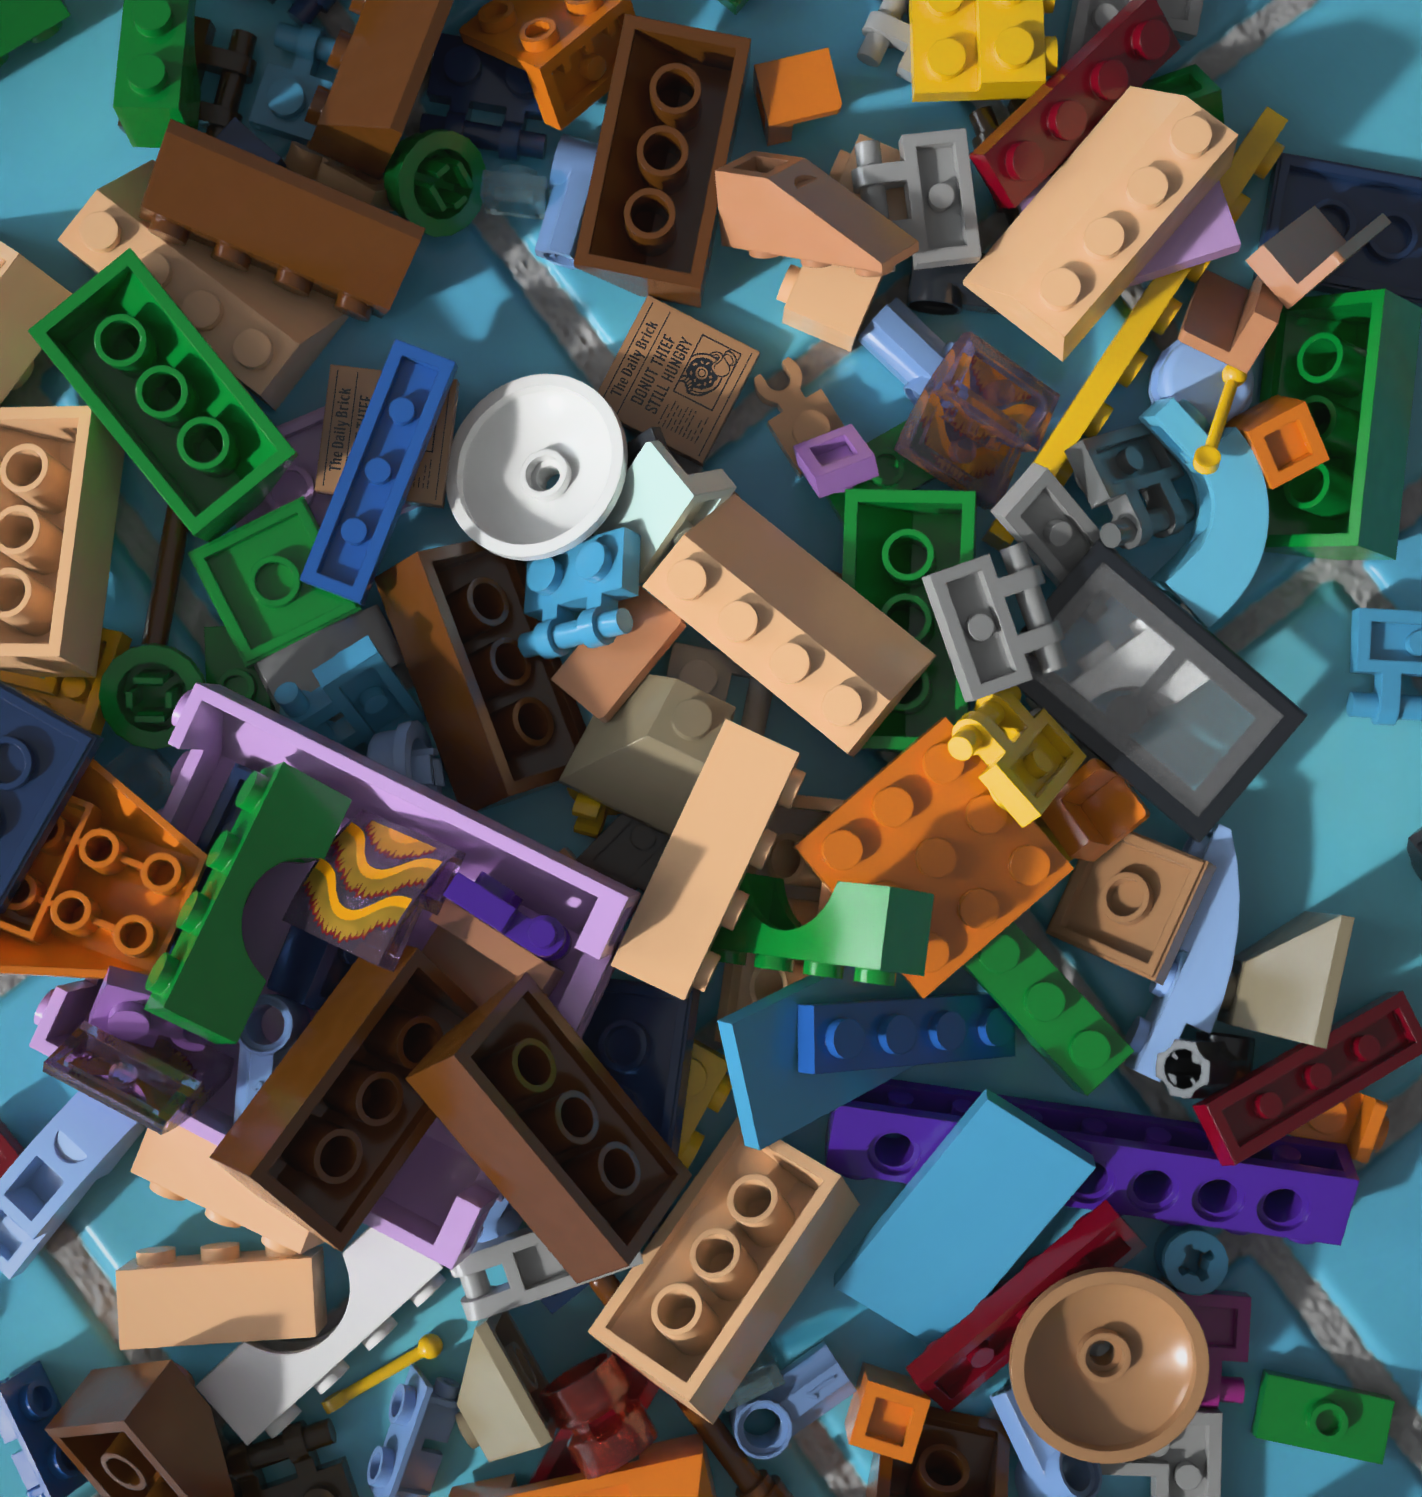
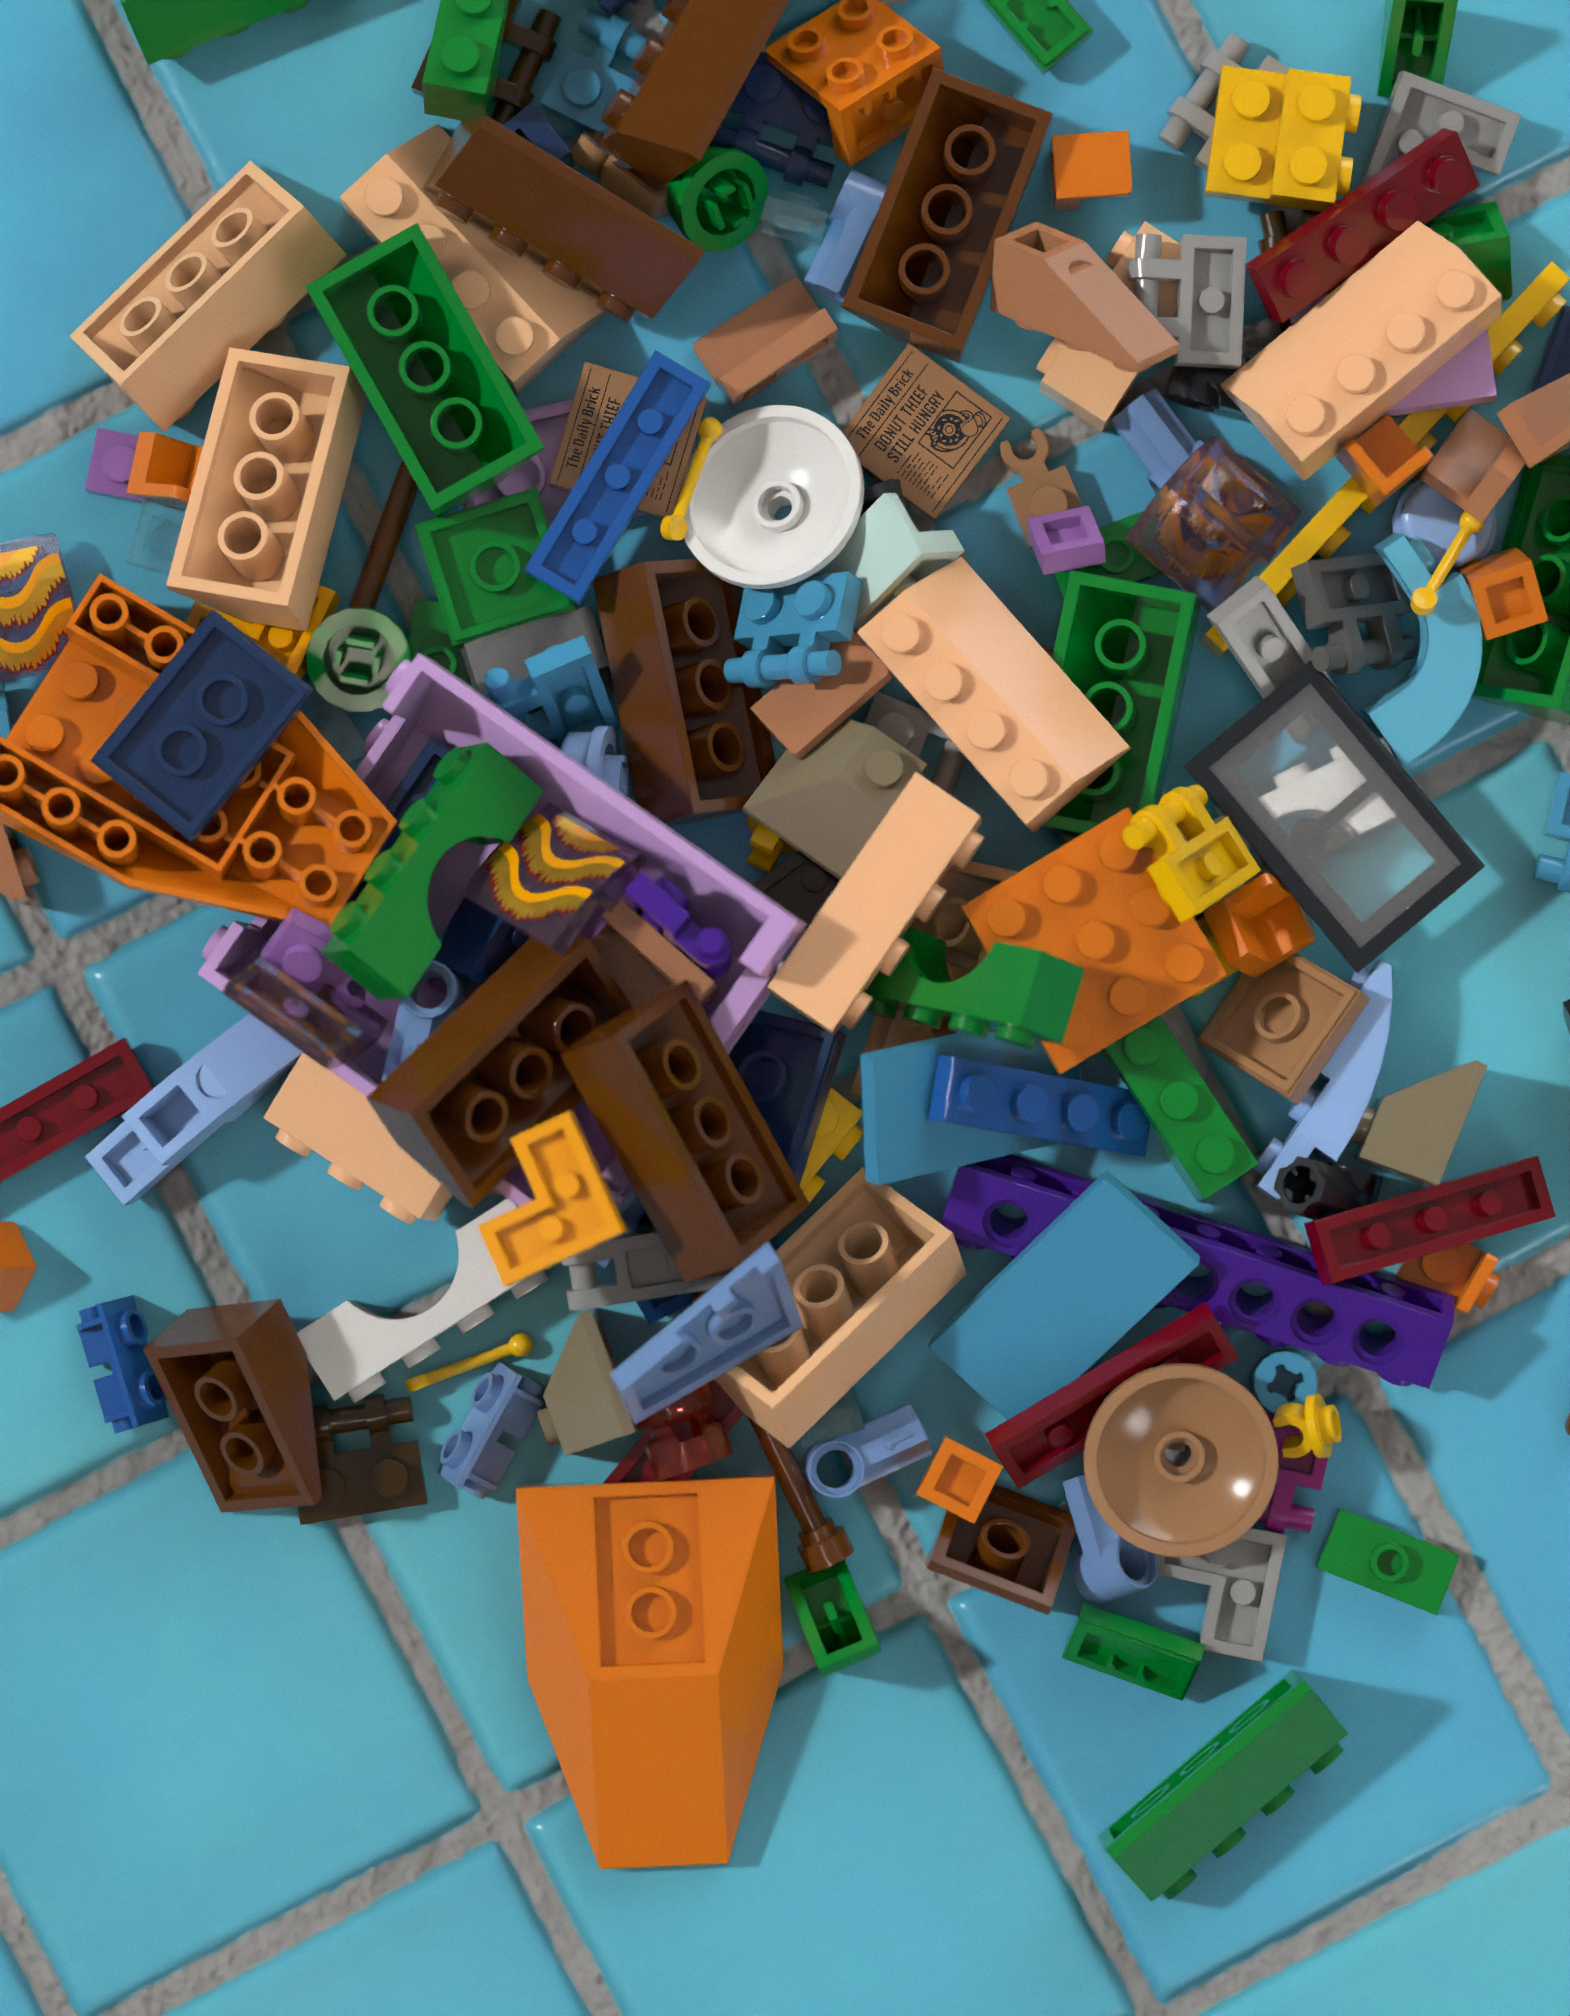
camera: 15 degrees right, 0 degrees up
(219, 1296) = (327, 1255): light nougat brick -> none
(441, 1237) = (570, 1206): none -> light orange plate
(445, 511) = (674, 526): none -> yellow hinge
(508, 318) = (765, 341): none -> nougat panel
(611, 1338) = (712, 1336): none -> medium blue wing
(979, 626) = (1175, 723): light grey plate -> none
(1138, 327) = (1383, 459): none -> orange panel
(1237, 1306) = (1317, 1422): none -> yellow plate

